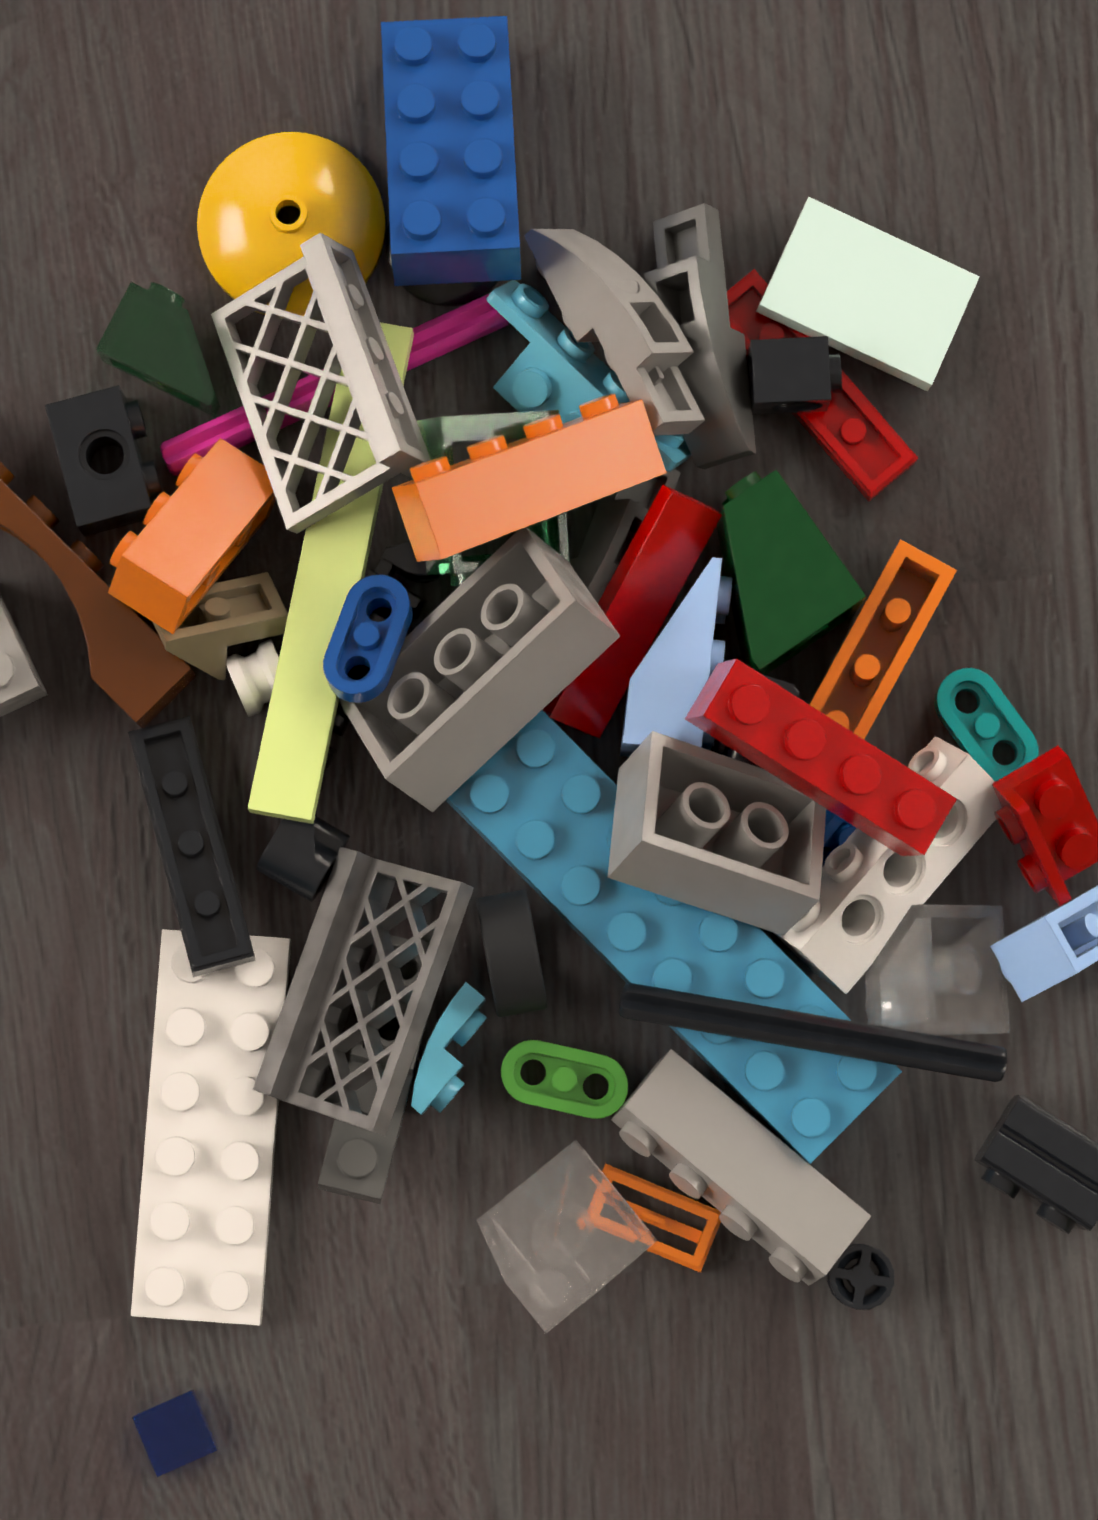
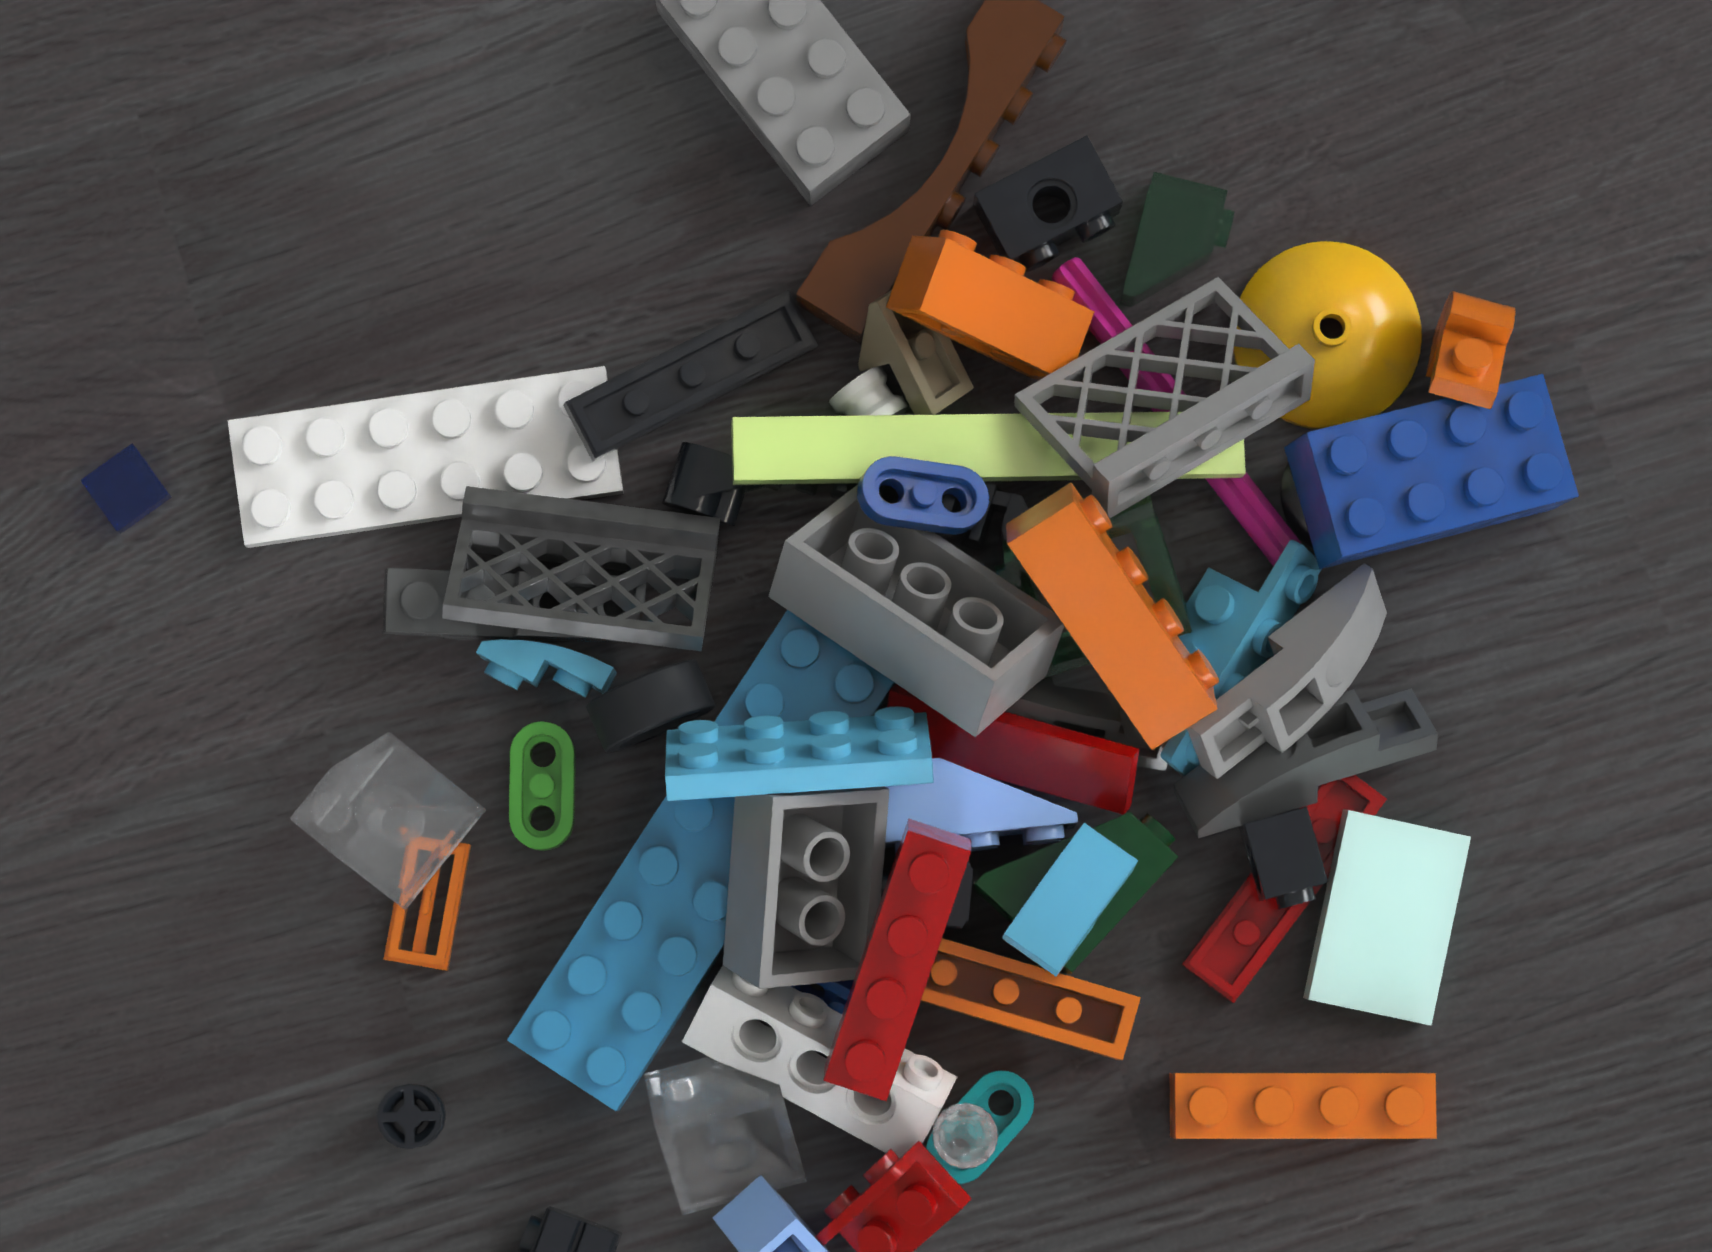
camera: 80 degrees right, 0 degrees up
(341, 85) = (1469, 349): none -> orange brick
(600, 811) = (798, 755): none -> medium azure plate
(739, 1169) = (489, 975): light grey brick -> none
(798, 579) = (1070, 899): none -> medium azure slope
(813, 1032) = (632, 1013): black axle -> none
(989, 745) = (956, 1133): none -> clear wheel
(1031, 413) = (1303, 1106): none -> orange brick

